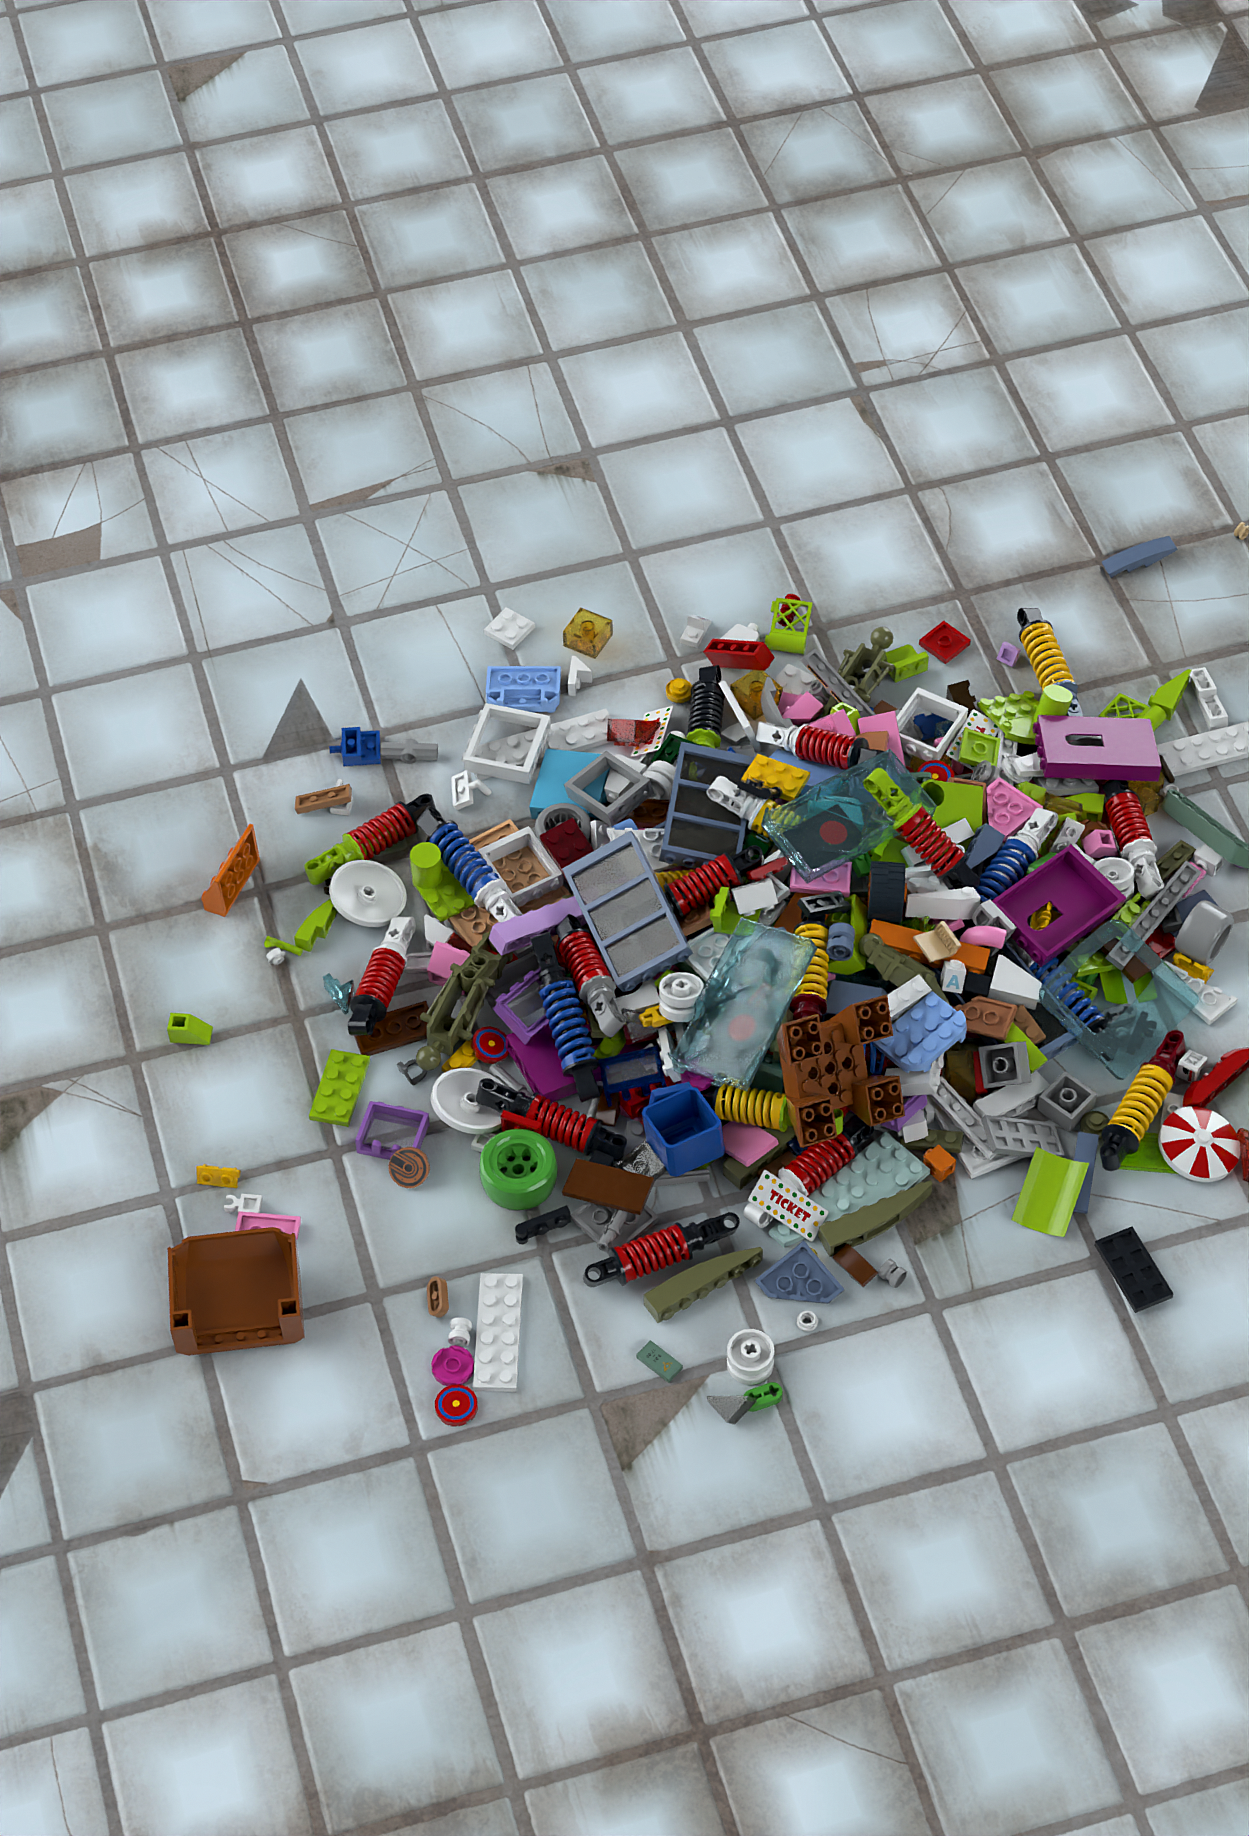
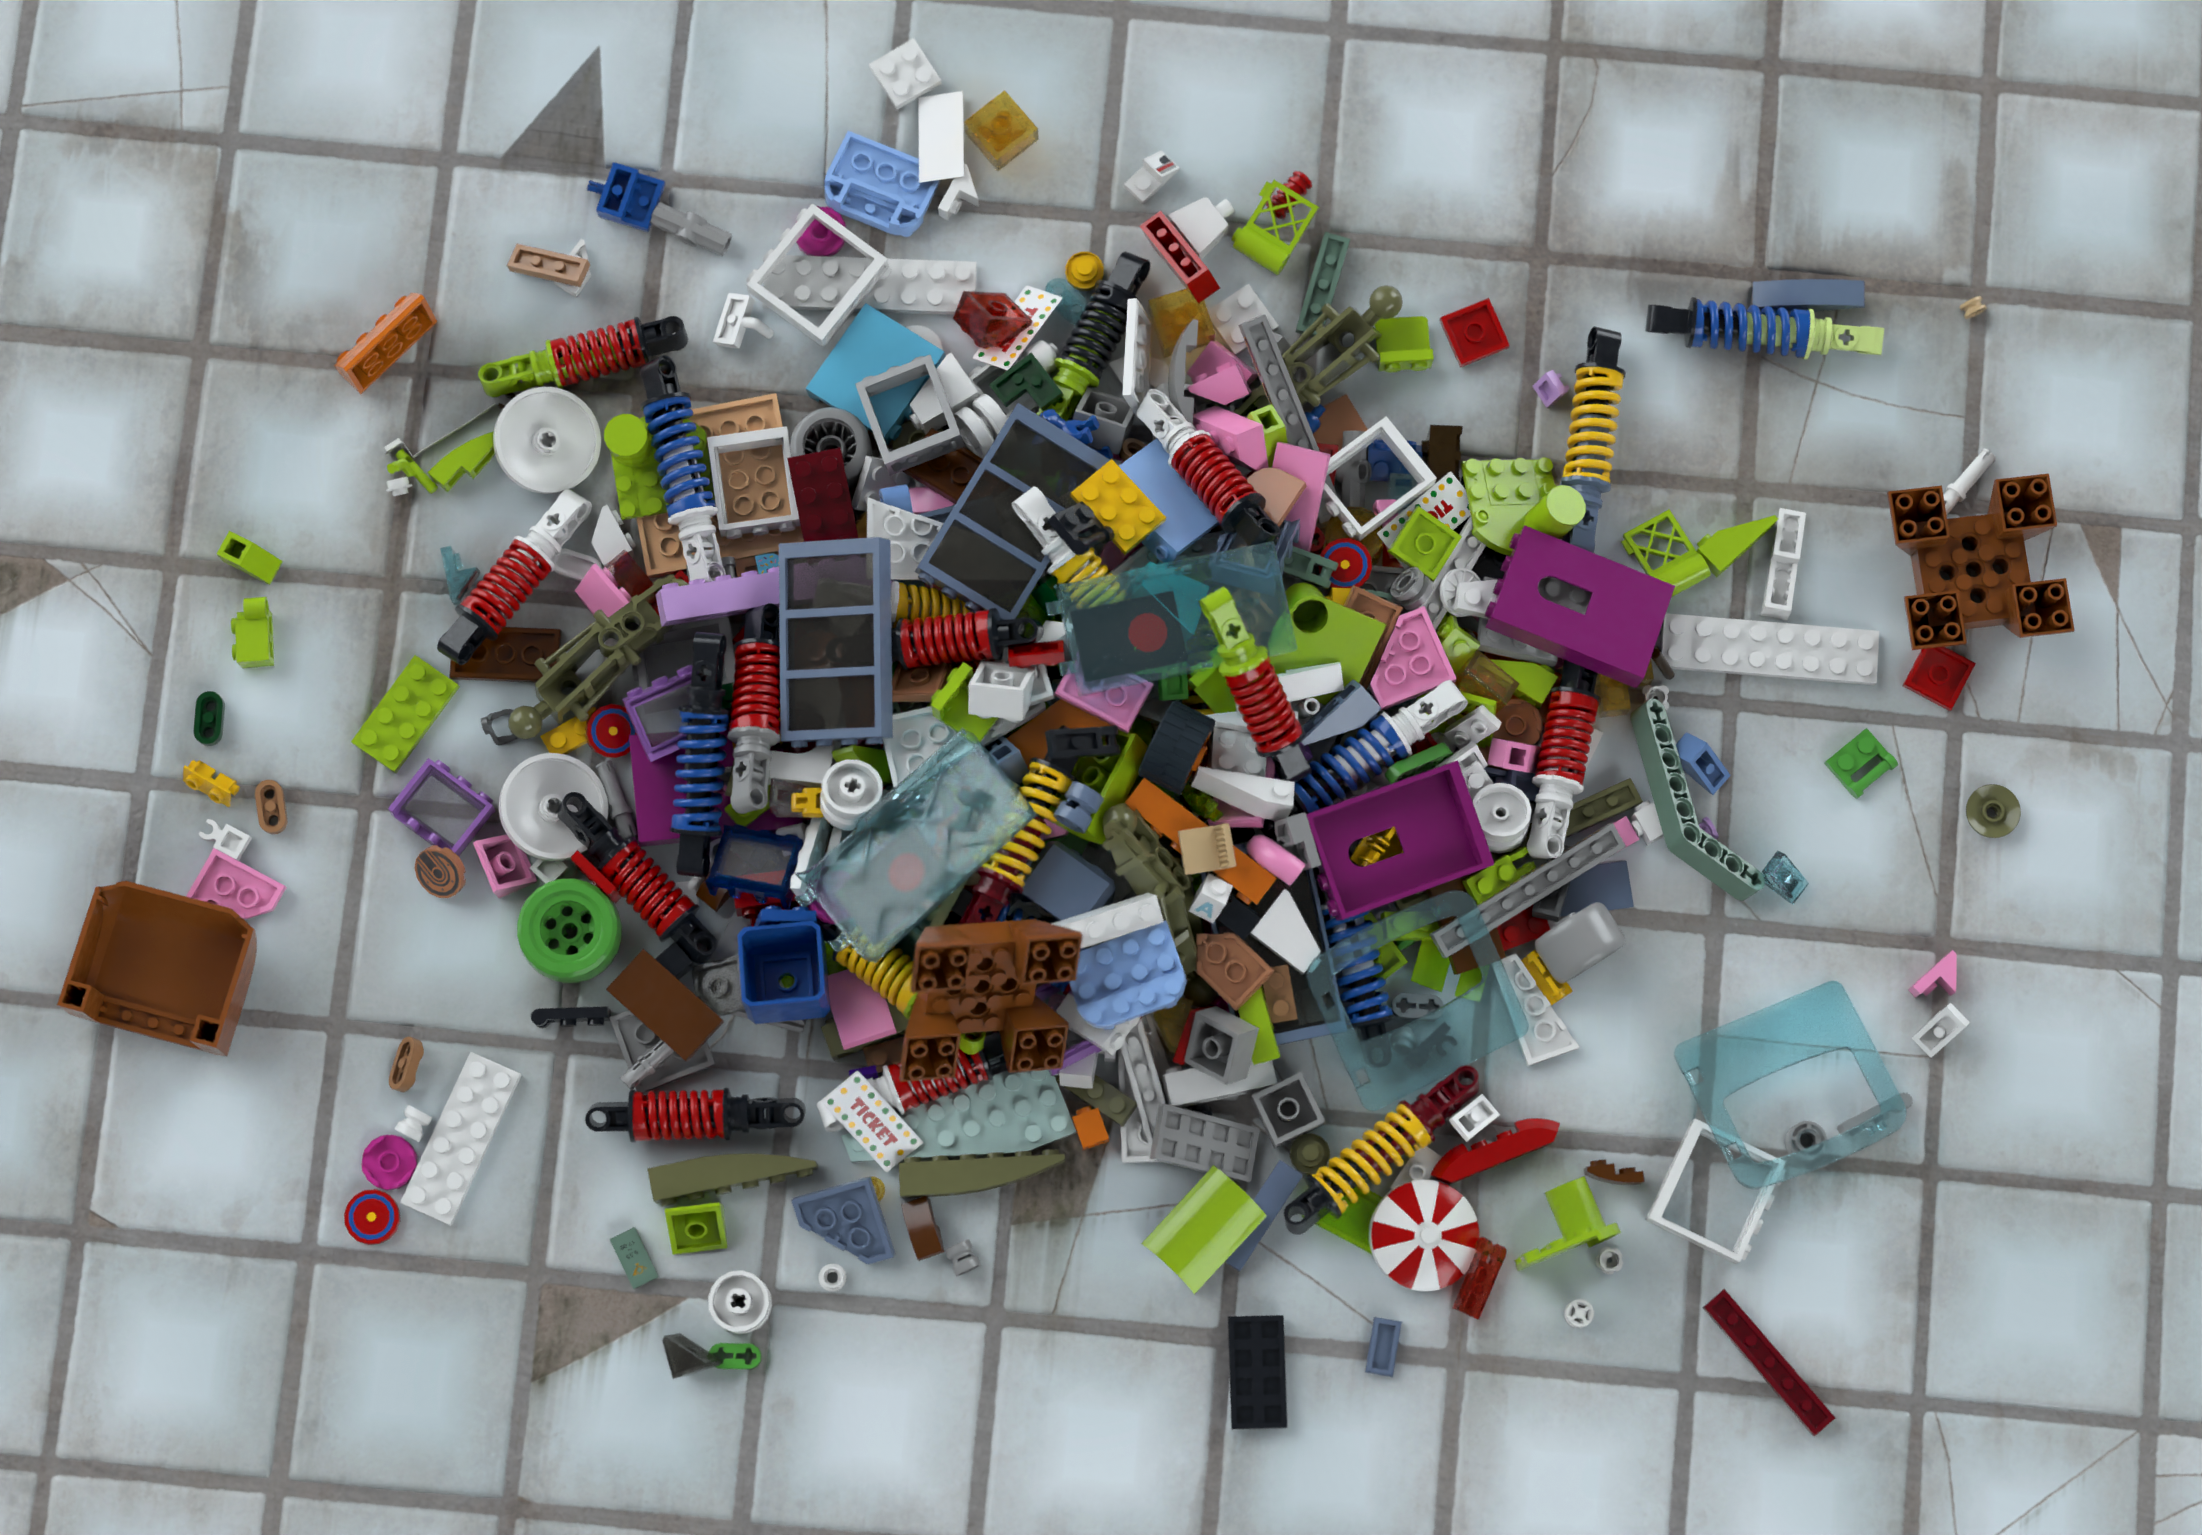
camera: 20 degrees right, 25 degrees up
(201, 1138) = (209, 719): none -> dark green plate
(211, 1074) = (253, 634): none -> lime hinge
(264, 932) = (397, 443): none -> white piece
(269, 1175) = (271, 807): none -> medium nougat plate
(450, 1151) = (504, 865): none -> bright pink slope
(497, 730) = (819, 240): none -> dark pink tile
(550, 650) = (941, 137): none -> white sticker
(680, 711) = (1070, 298): none -> clear light blue plate
(694, 1321) = (696, 1228): none -> lime slope
(833, 642) = (1323, 280): none -> sand green plate
(1142, 574) = (1794, 330): none -> piece
(1209, 1224) = (1383, 1347): none -> sand blue tile
(1223, 813) = (1701, 763): none -> medium blue slope

